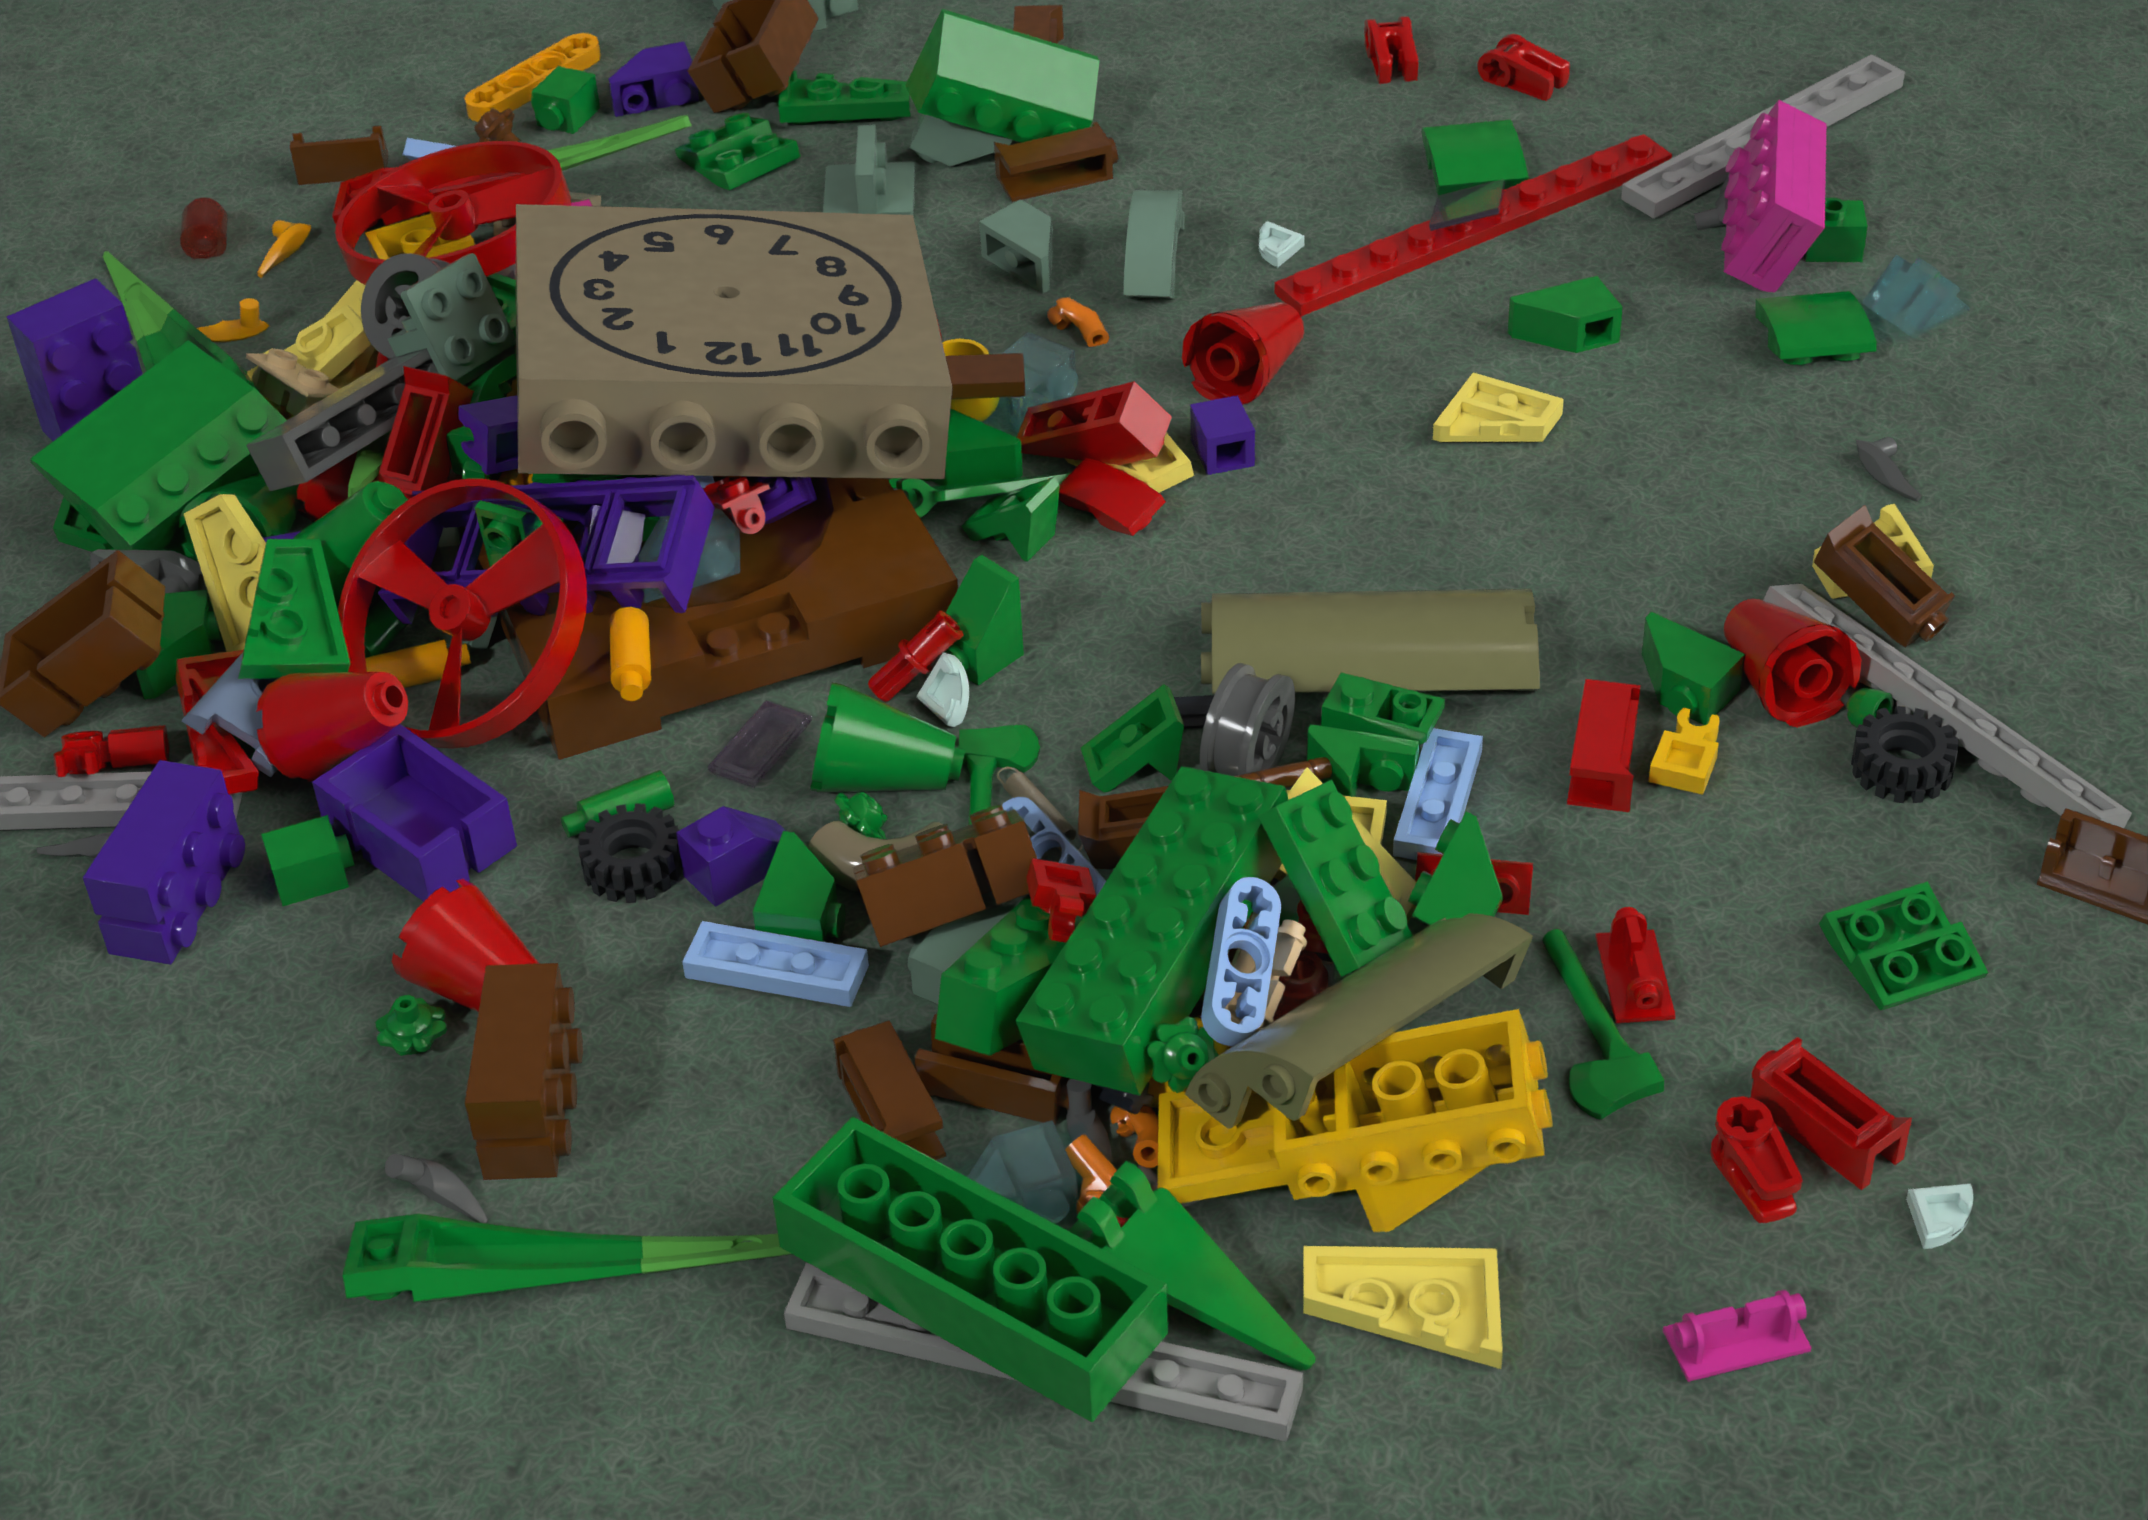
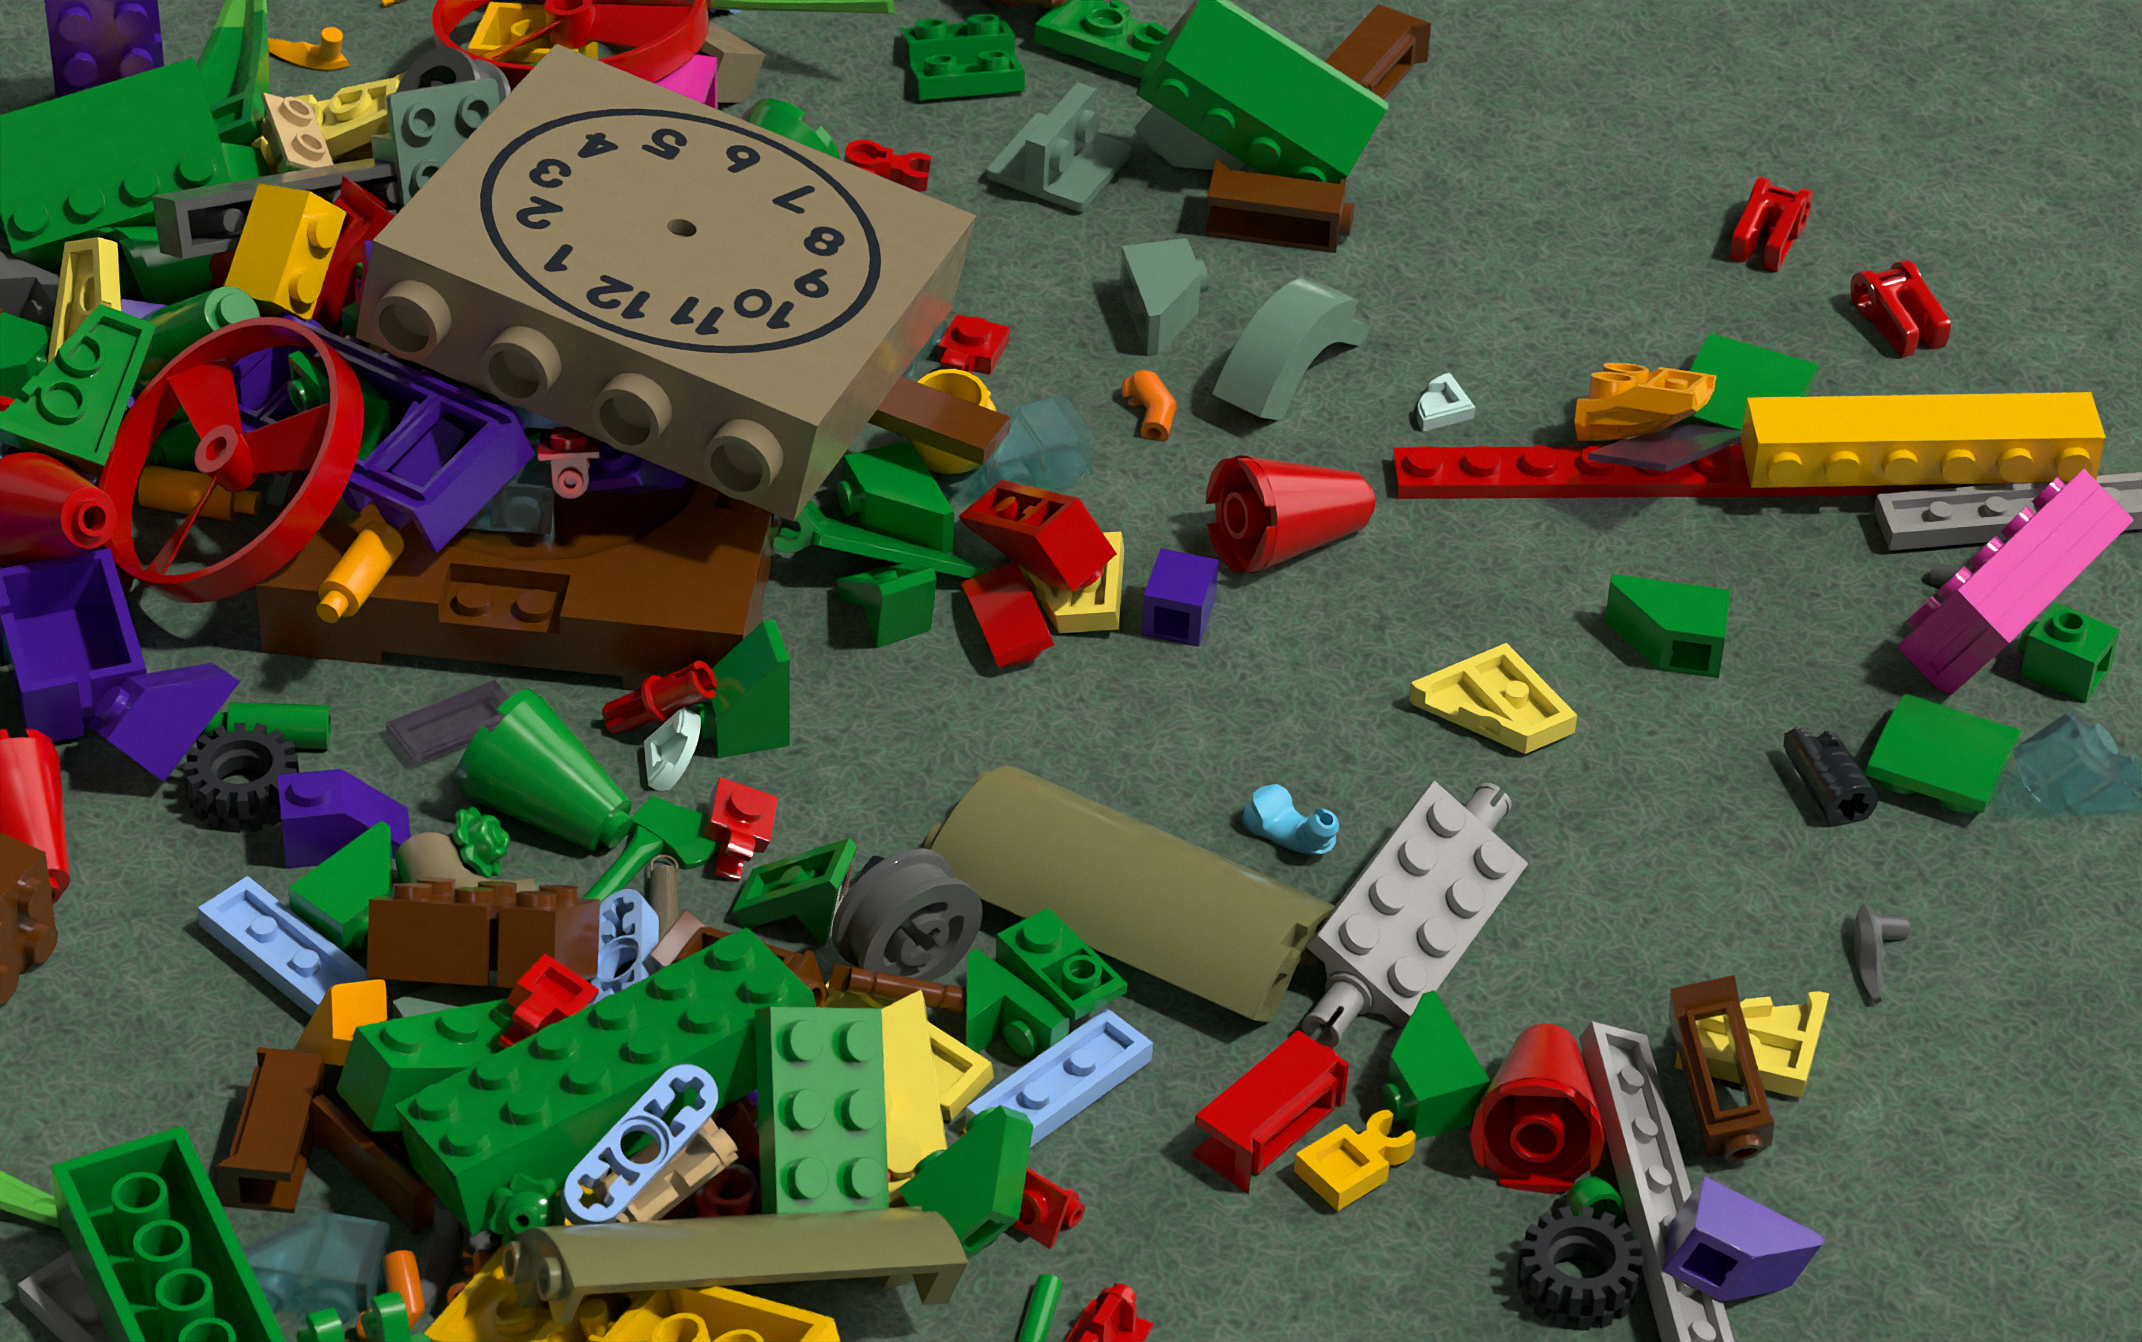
camera: 25 degrees right, 0 degrees up
(391, 438) = (285, 250): none -> yellow brick
(540, 830) = (162, 713): none -> dark purple slope
(896, 992) = (339, 1014): none -> light orange slope
(1042, 718) = (741, 823): none -> red plate
(1416, 554) = (1274, 818): none -> medium azure piece
(1423, 185) = (1632, 401): none -> light orange slope
(1576, 572) = (1413, 910): none -> light grey plate
(1629, 135) = (1920, 439): none -> yellow brick
(1757, 369) = (1831, 775): none -> black hinge
(1997, 686) = (1735, 1244): none -> dark purple slope

